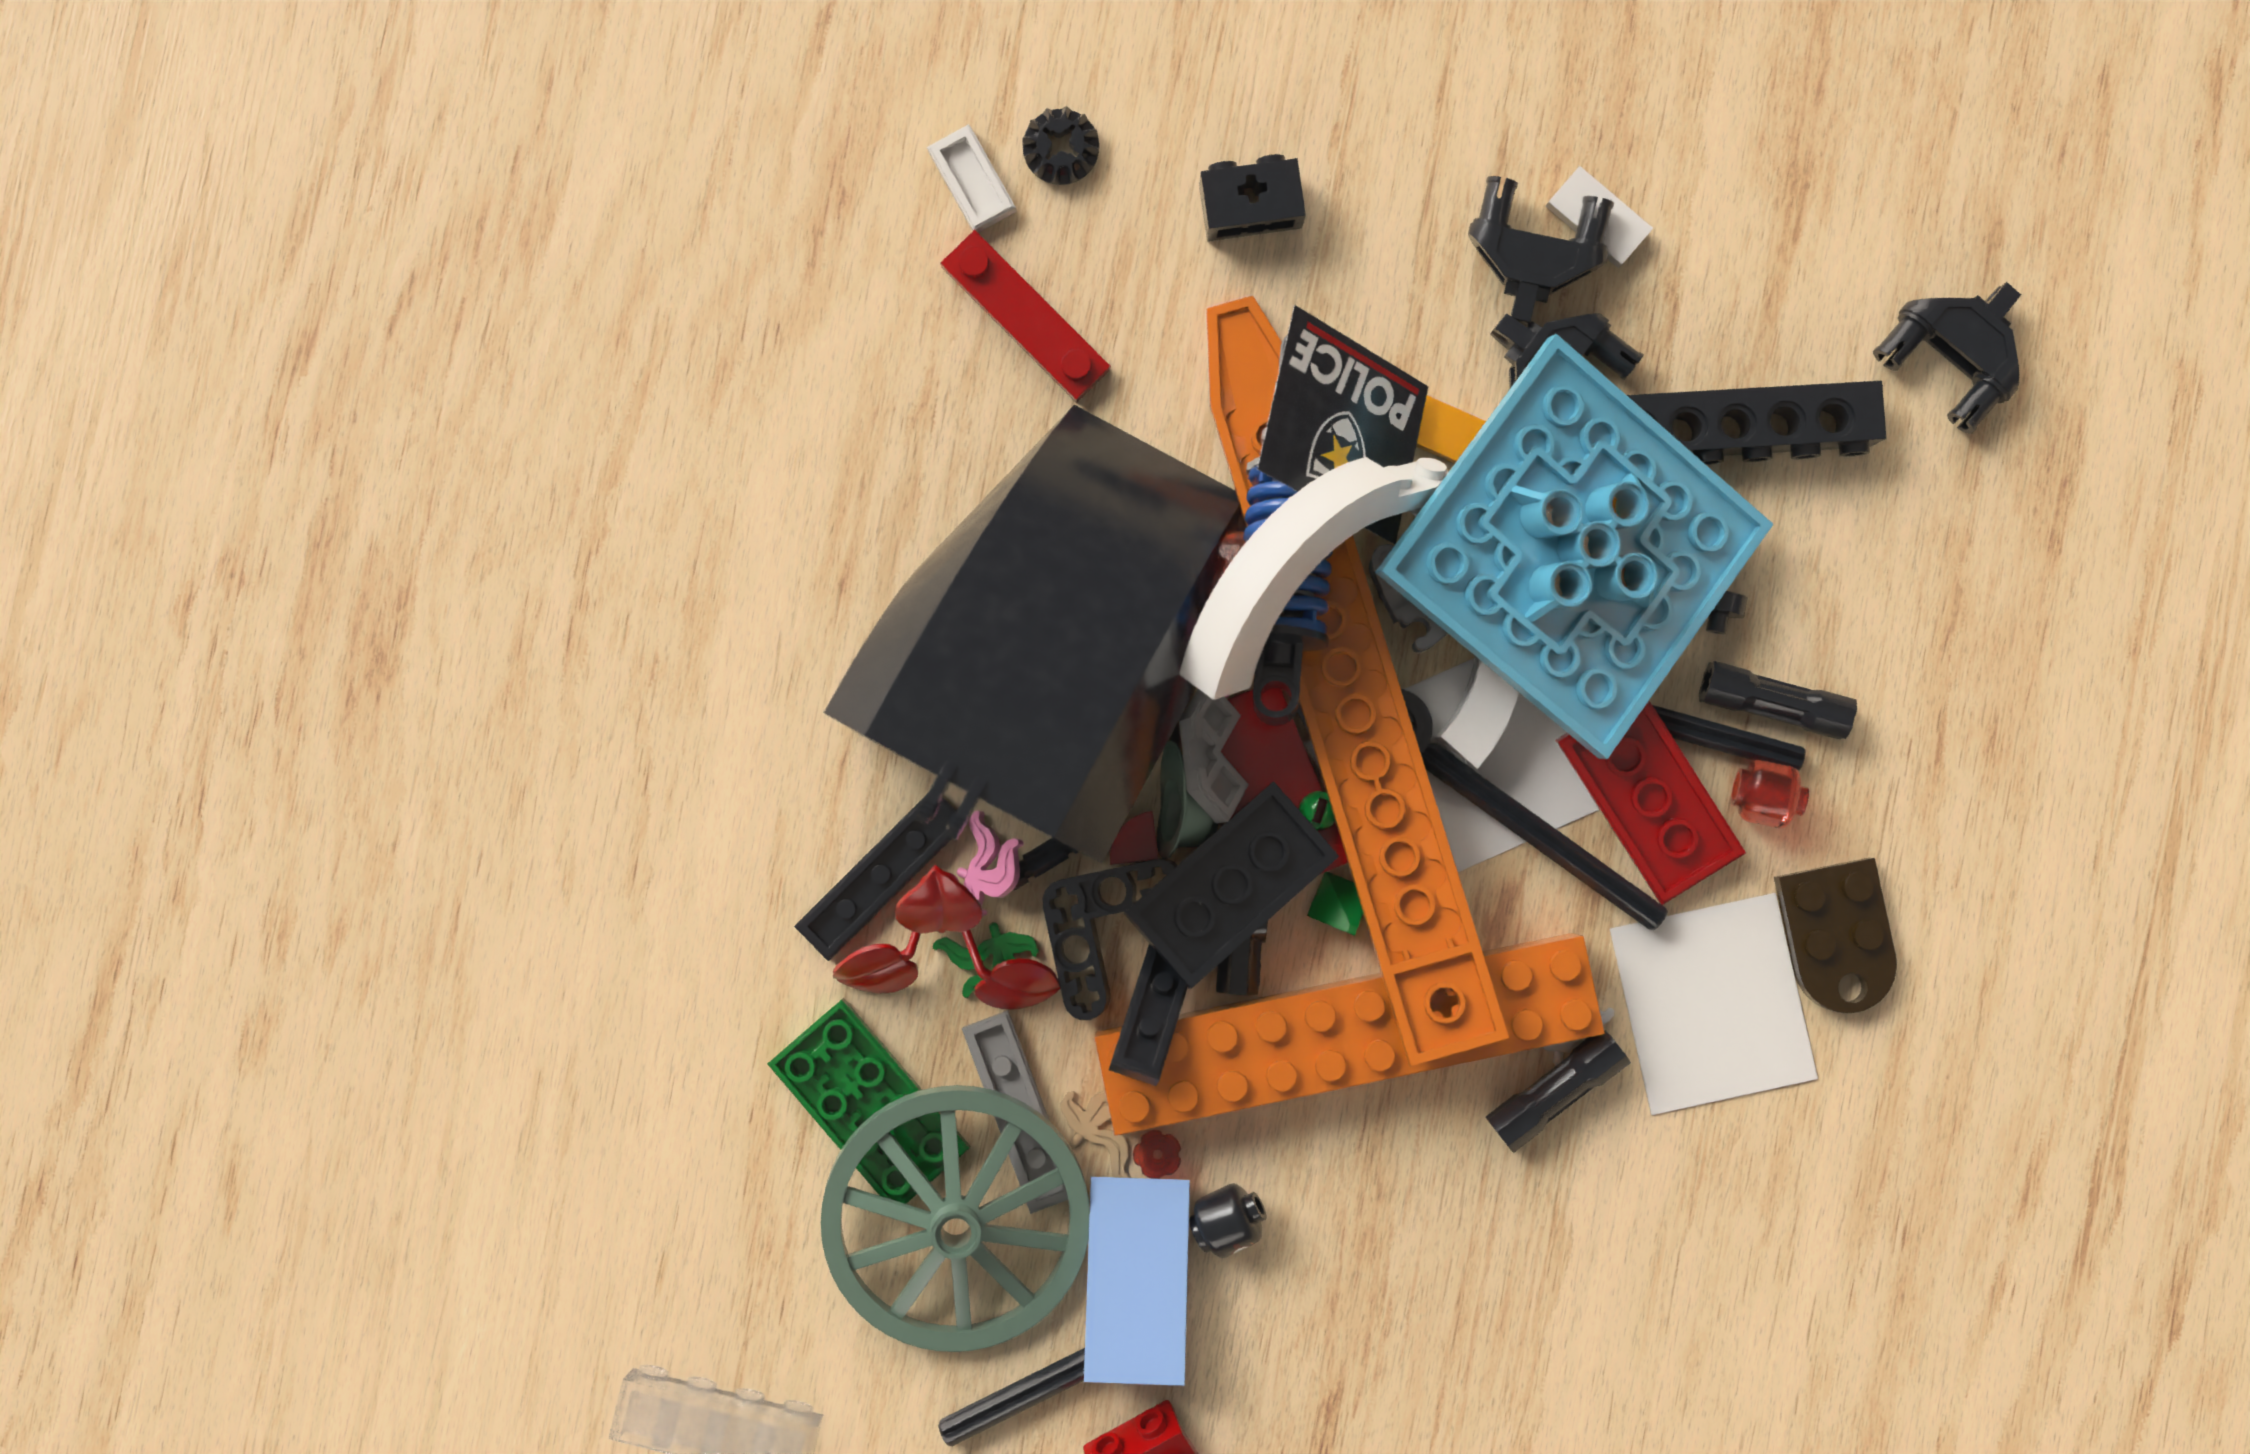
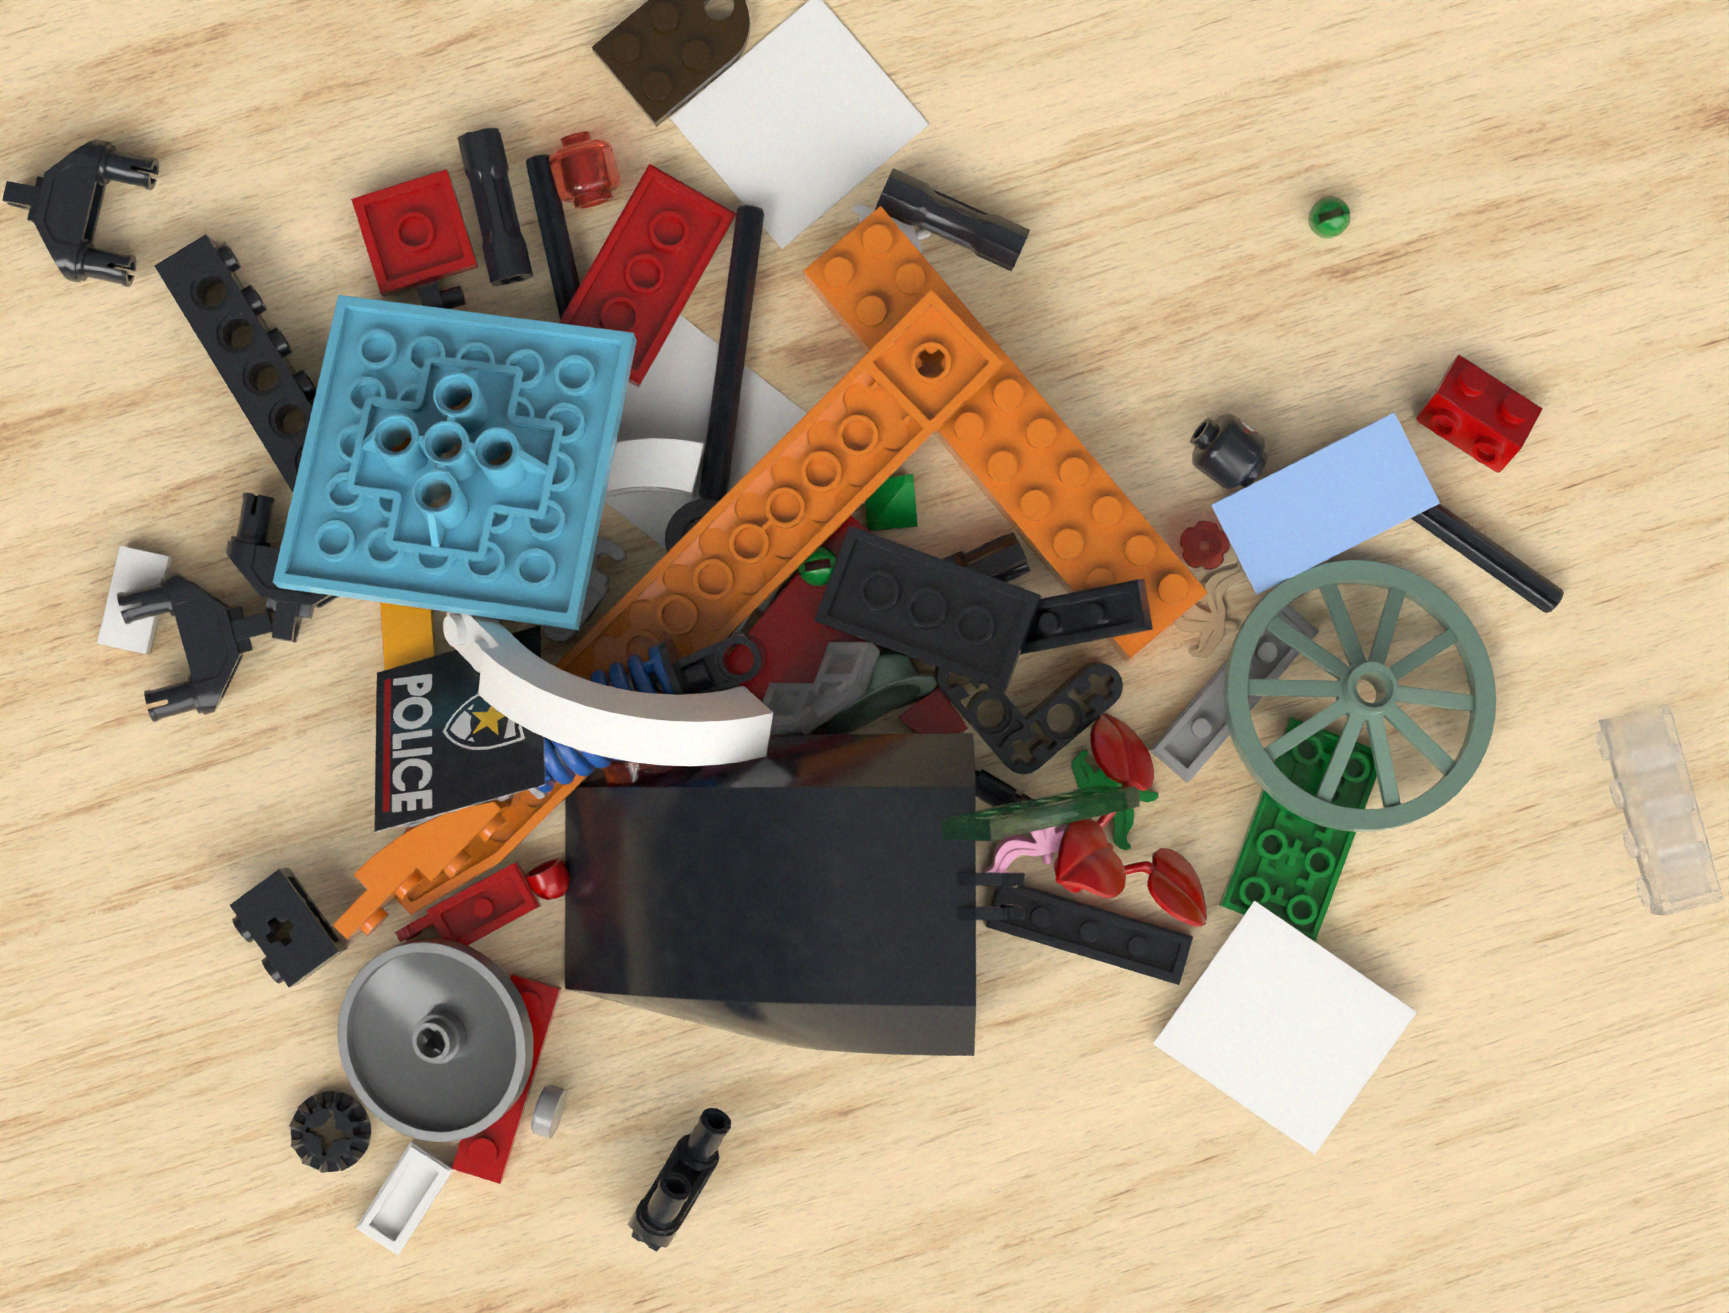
camera: 115 degrees left, 0 degrees up
(708, 997) = (1284, 1027): none -> white sticker
(858, 412) = (680, 1181): none -> black connector
(978, 335) = (548, 1111): none -> light grey tile
(1001, 882) = (1039, 813): none -> clear green tile
(1090, 271) = (435, 1039): none -> dark grey dish
(1173, 440) = (549, 879): none -> red hinge
(1179, 361) = (478, 908): none -> red hinge
(1255, 350) = (432, 848): none -> orange slope
(1375, 1419) = (1334, 226): none -> green hinge
(1791, 619) = (414, 232): none -> red plate

